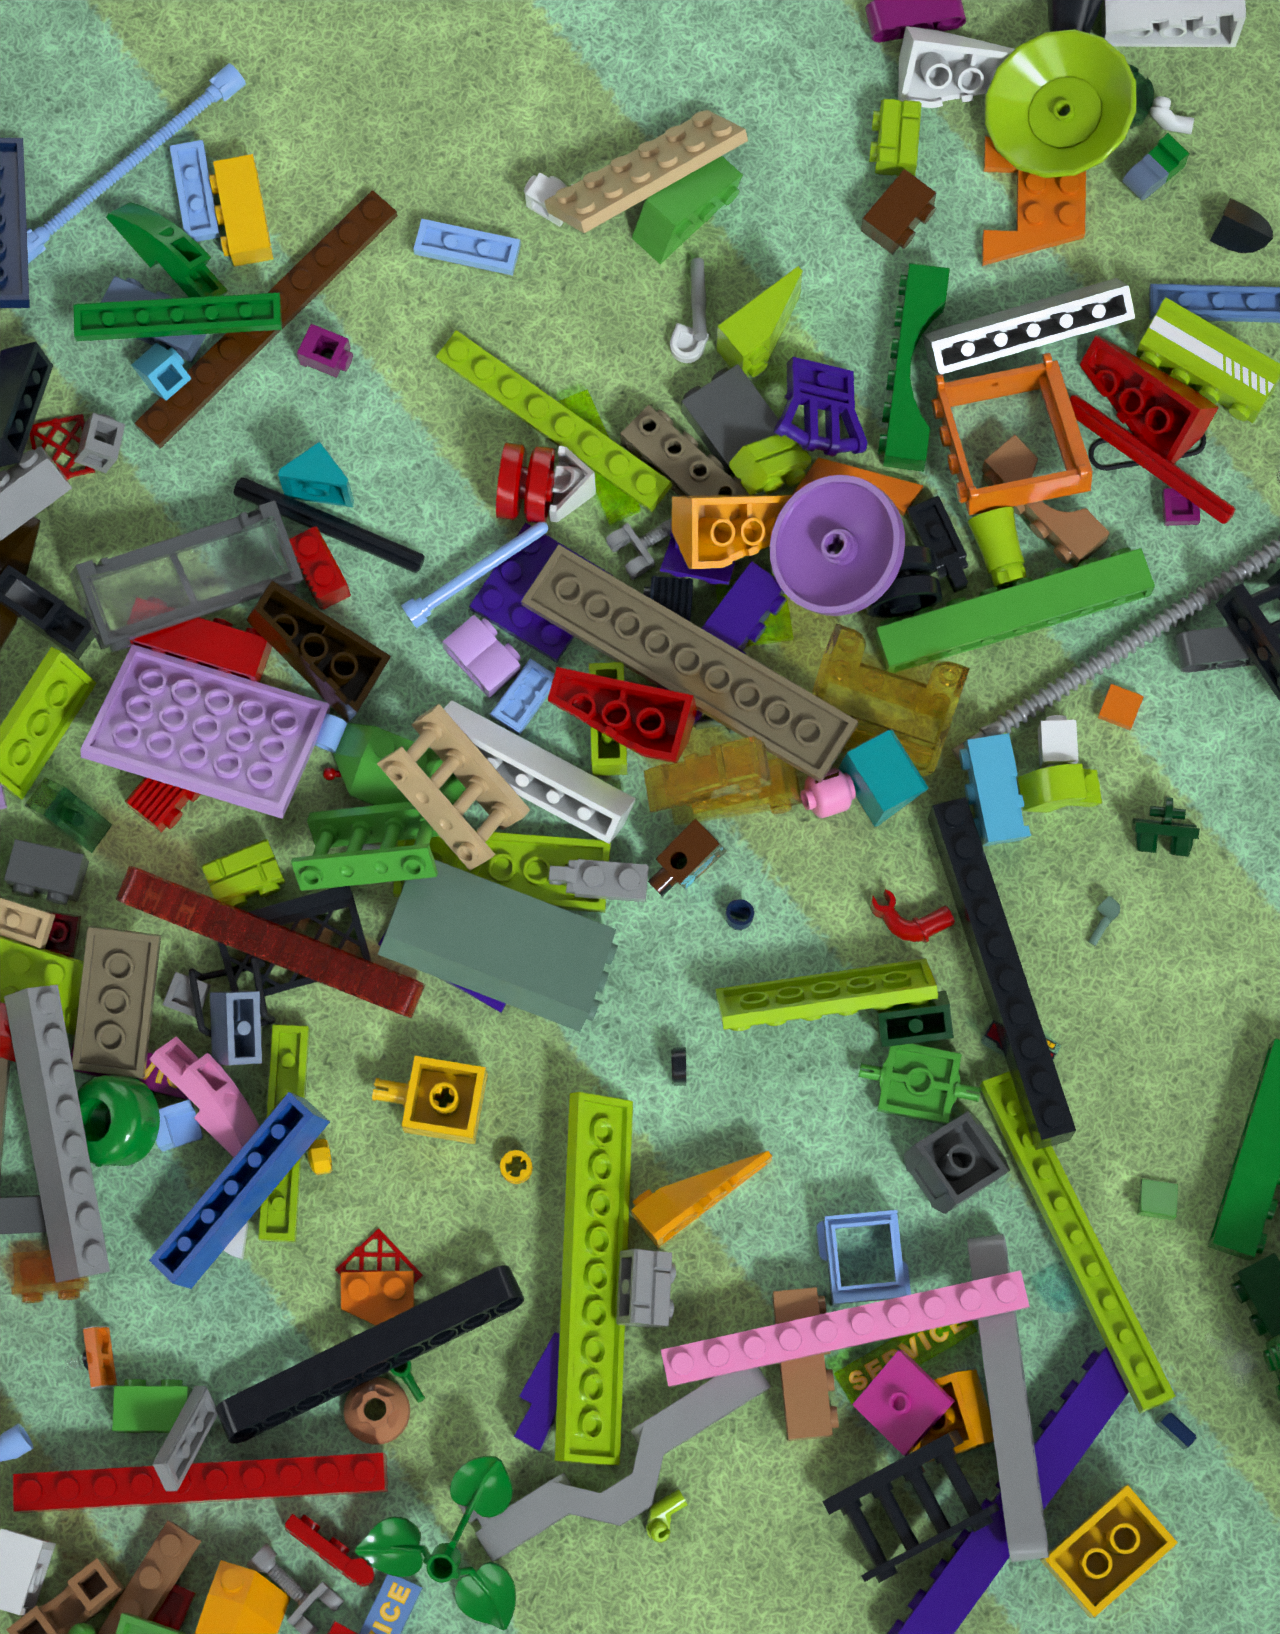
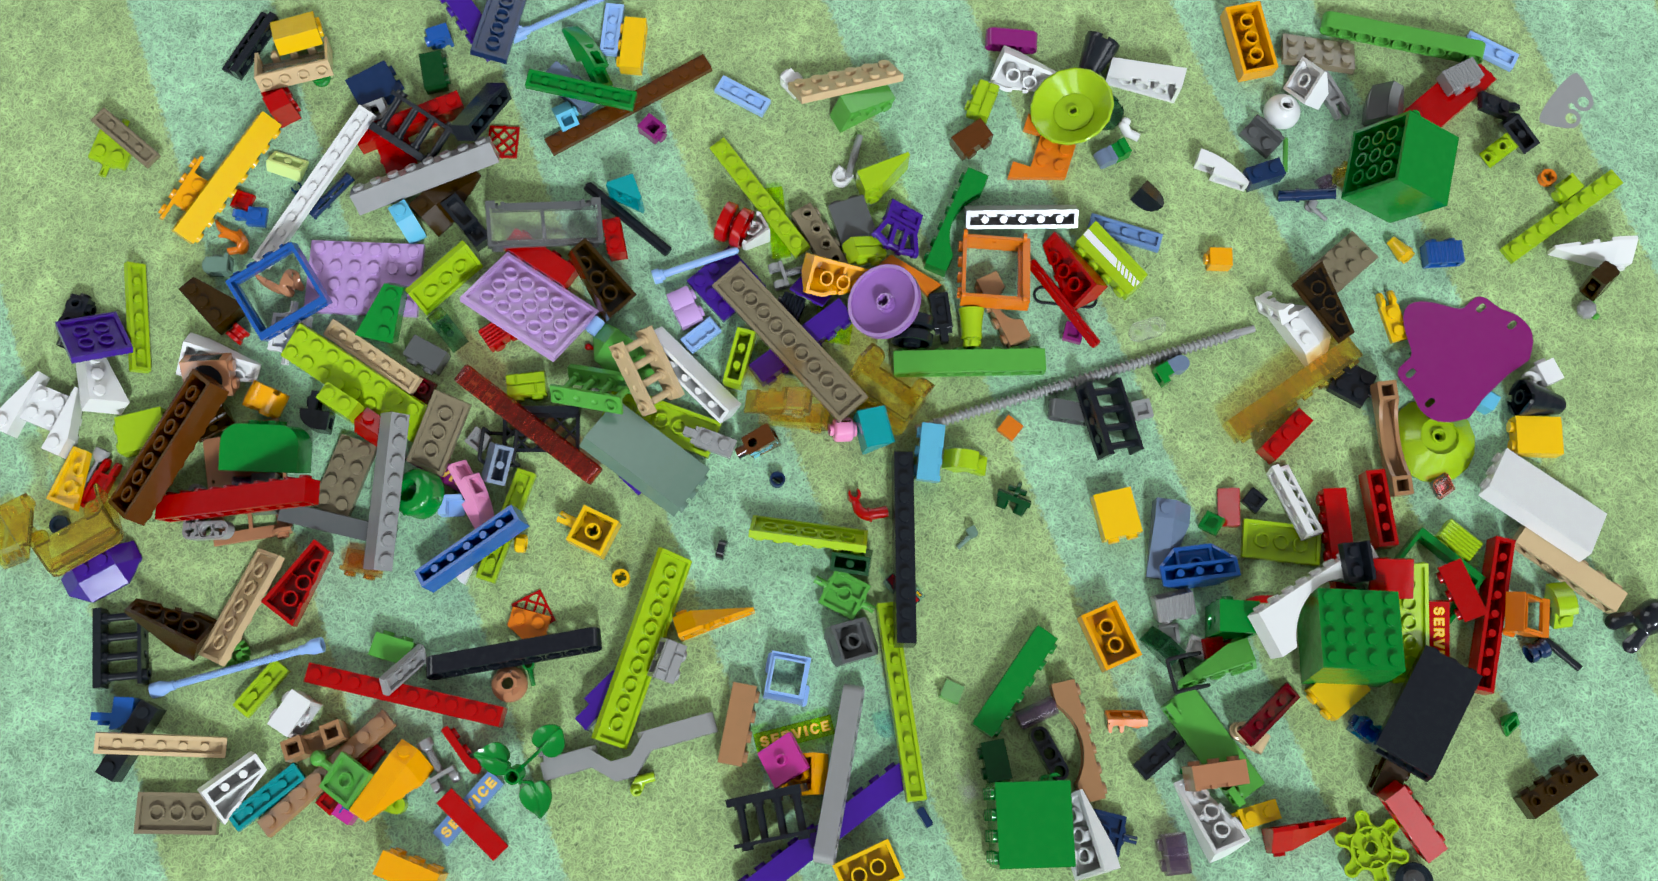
camera: 10 degrees right, 0 degrees up
(96, 1358) = (373, 614): orange piece -> none
(100, 442) = (522, 143): light grey brick -> none
(635, 715) = (751, 360): red wedge -> none
(845, 1328) = (764, 712): bright pink plate -> none
(1057, 741) = (971, 436): white brick -> none

